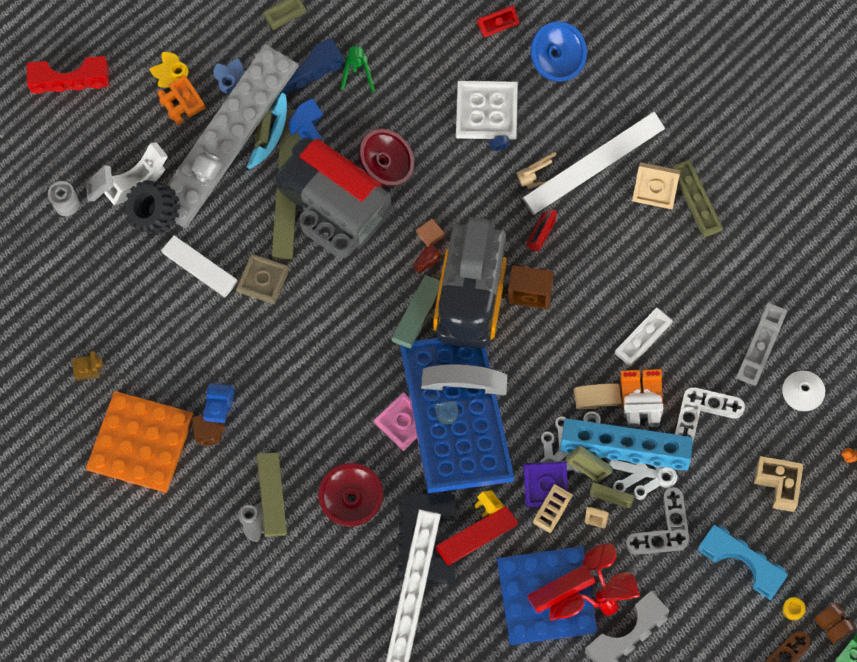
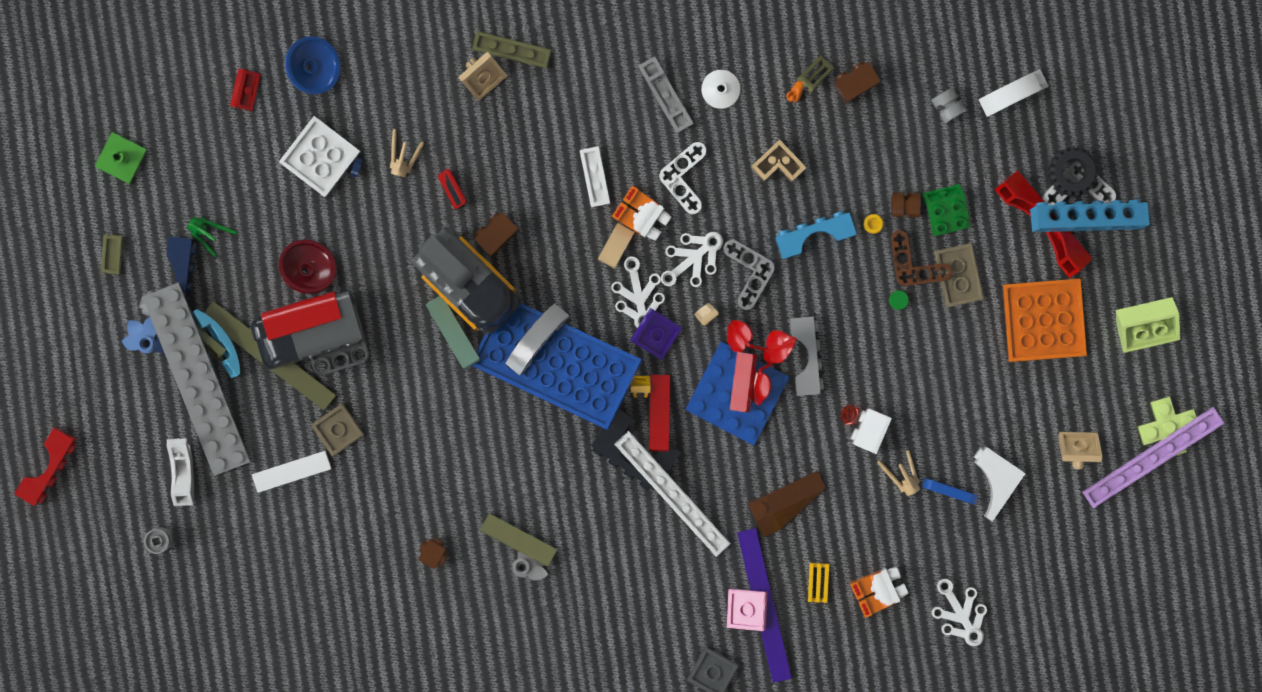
camera: 50 degrees left, 20 degrees up
(87, 366) = (315, 611): pearl gold bracket -> none
(99, 183) = (166, 505): light grey tile -> none
(138, 207) = (223, 465): black tyre -> none
(140, 441) = (405, 609): orange plate -> none
(167, 70) = (97, 384): yellow plate -> none
(185, 95) = (134, 384): orange plate -> none
(206, 166) = (217, 413): light grey head -> none
(218, 402) = (420, 533): blue brick -> none
(304, 118) = (225, 309): blue brick -> none
(348, 481) = (548, 485): dark red dish -> none
(398, 422) = (529, 408): bright pink plate -> none
(427, 258) = (413, 293): clear red cone -> none
(430, 232) = (392, 275): nougat tile -> none
(446, 412) = (554, 371): clear light blue tile -> none
(542, 524) = (685, 358): tan slope -> none
(589, 464) = (665, 293): olive tile -> none
(593, 163) = (426, 107): white tile -> none
(611, 495) = (699, 292): olive tile -> none
(636, 439) = (699, 216): dark azure brick -> none

